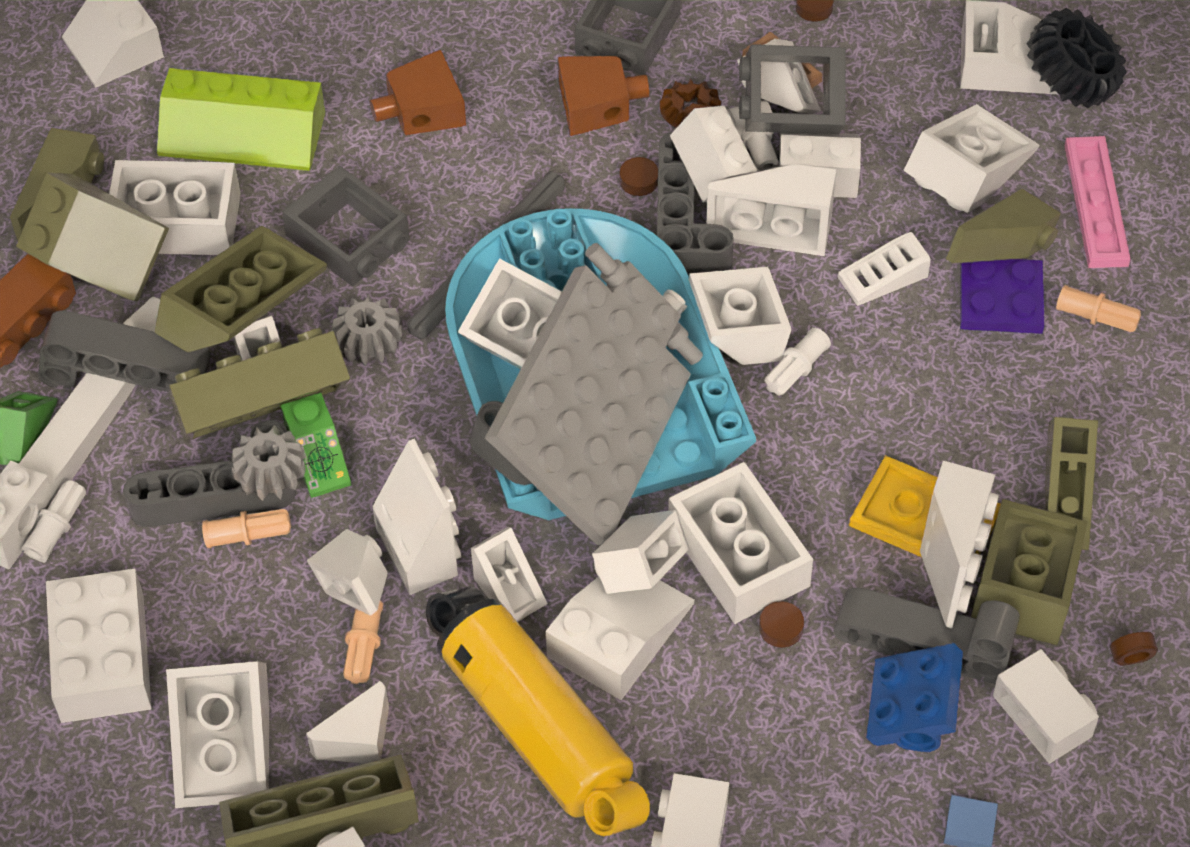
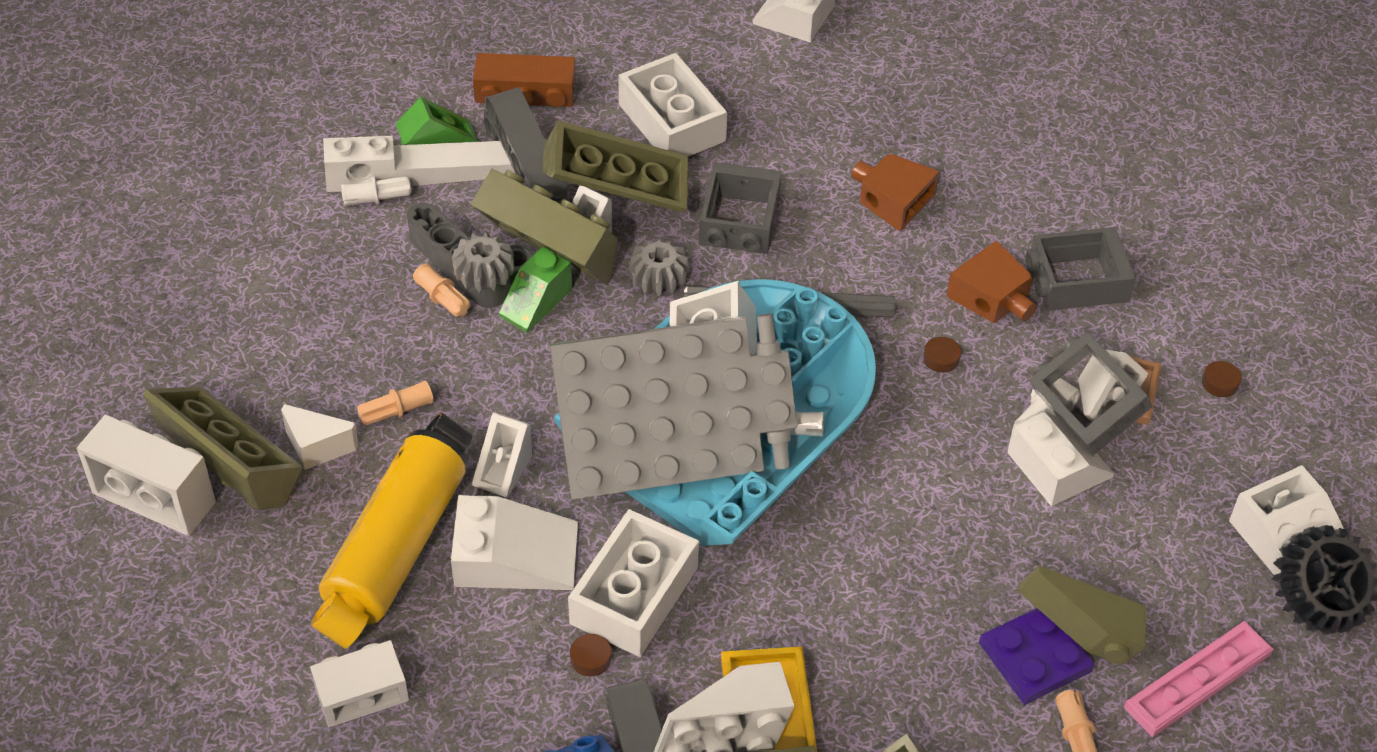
camera: 55 degrees right, 5 degrees down
(61, 153) = (645, 40): olive slope -> none
(92, 235) = (599, 70): slope -> none
(98, 645) = (289, 262): white brick -> none
(218, 732) = (266, 361): white slope -> none
(240, 119) = (784, 105): lime slope -> none
(351, 570) = (439, 362): white slope -> none
(417, 521) = (502, 376): white slope -> none
(640, 552) = (570, 518): white brick -> none
(673, 100) = (1025, 350): reddish brown gear -> none
(696, 245) = (901, 402): dark grey beam -> none
(711, 148) = (990, 385): white slope -> none
(742, 313) = (846, 473): white slope -> none
(776, 207) = (973, 447): white slope -> none
(797, 361) = (844, 541): white axle -> none
(907, 256) = (994, 573): white slope -> none
(968, 157) = (1157, 558): white slope -> none

